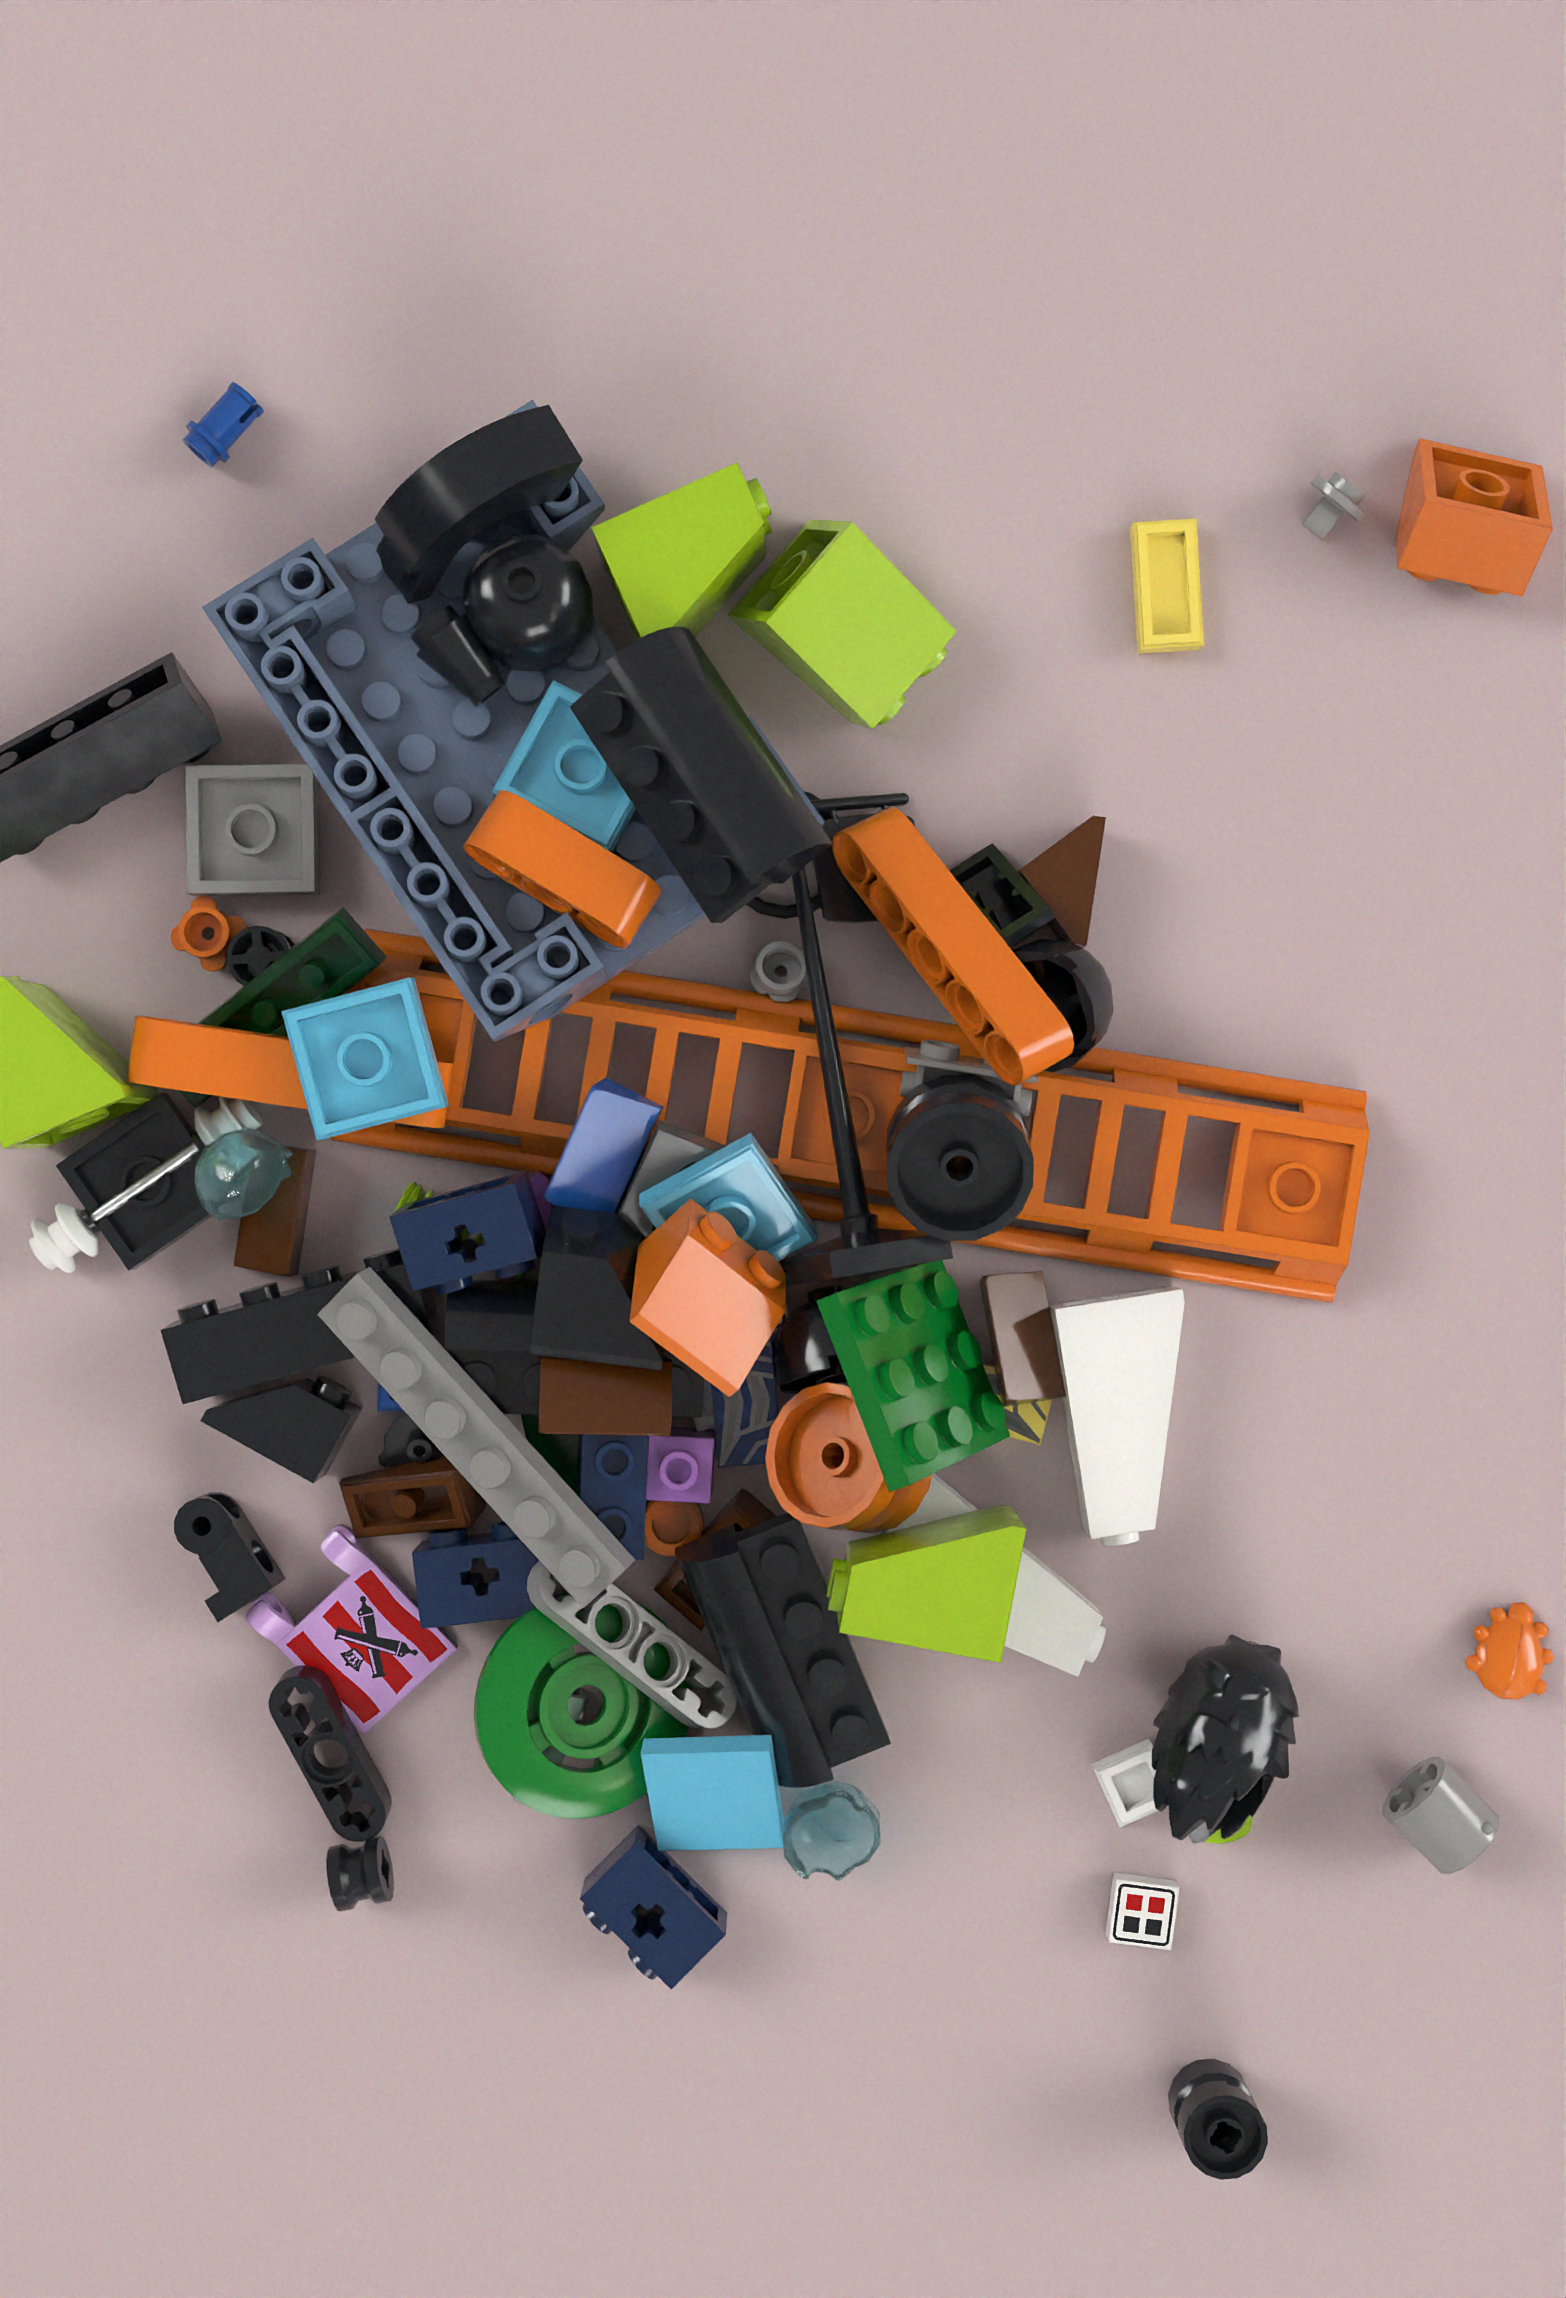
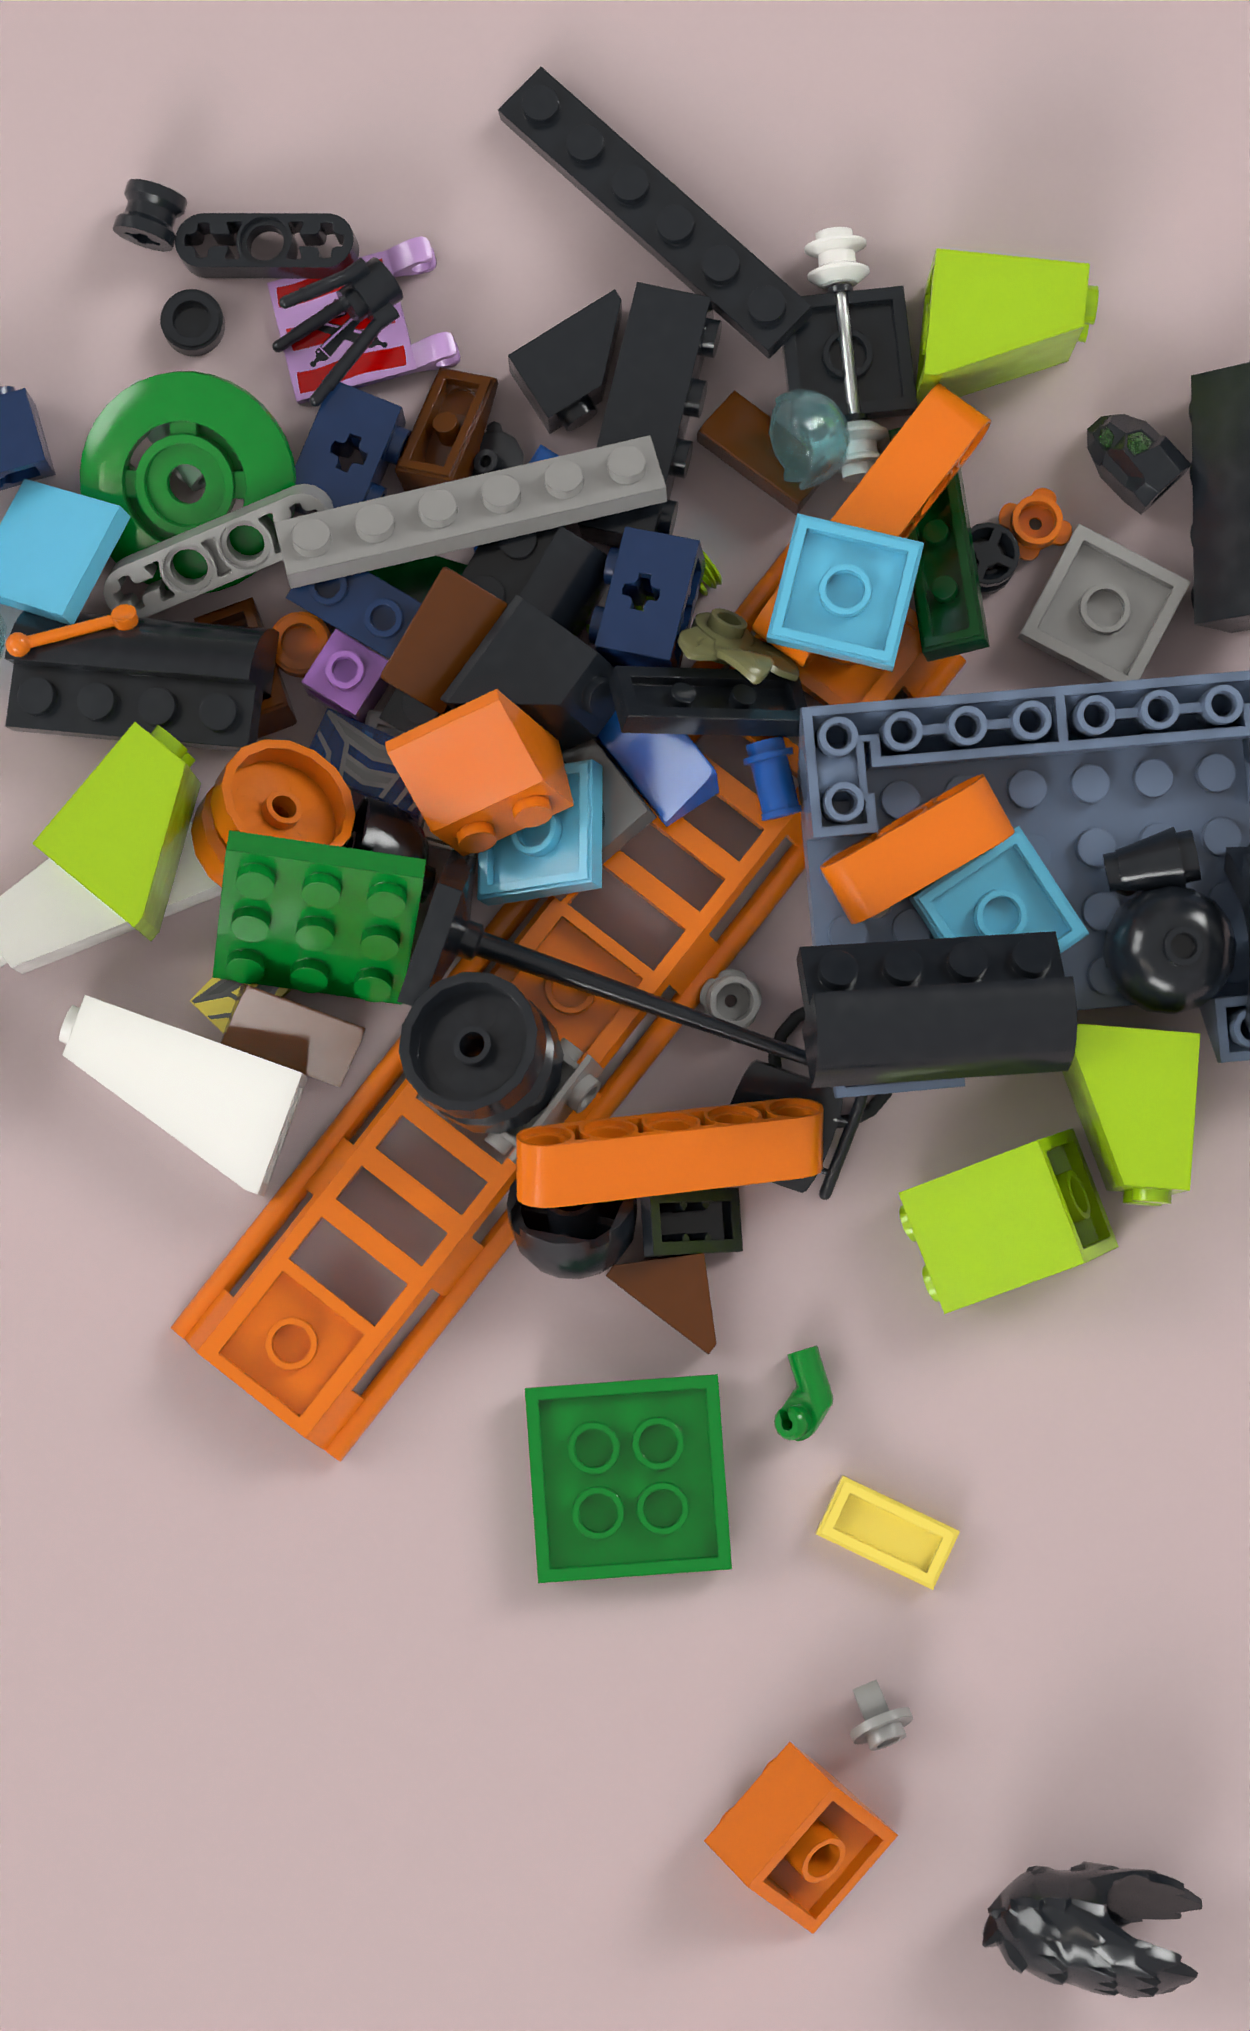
camera: 120 degrees right, 5 degrees down
(101, 875) = (1134, 459): none -> black rock
(110, 1424) = (655, 212): none -> black plate
(229, 1551) = (490, 253): black leg -> none
(325, 1640) = (367, 293): none -> black plant
(435, 1780) = (192, 322): none -> black tile
(466, 1145) = (726, 640): none -> olive plate
(531, 1129) = (705, 702): none -> black plate
(567, 1036) = (773, 777): none -> blue pin
(740, 1695) = (122, 618): none -> orange hinge
(1089, 714) = (809, 1400): none -> green arm
(1245, 833) = (628, 1478): none -> green plate
(1431, 245) = (1071, 1922): none -> black head

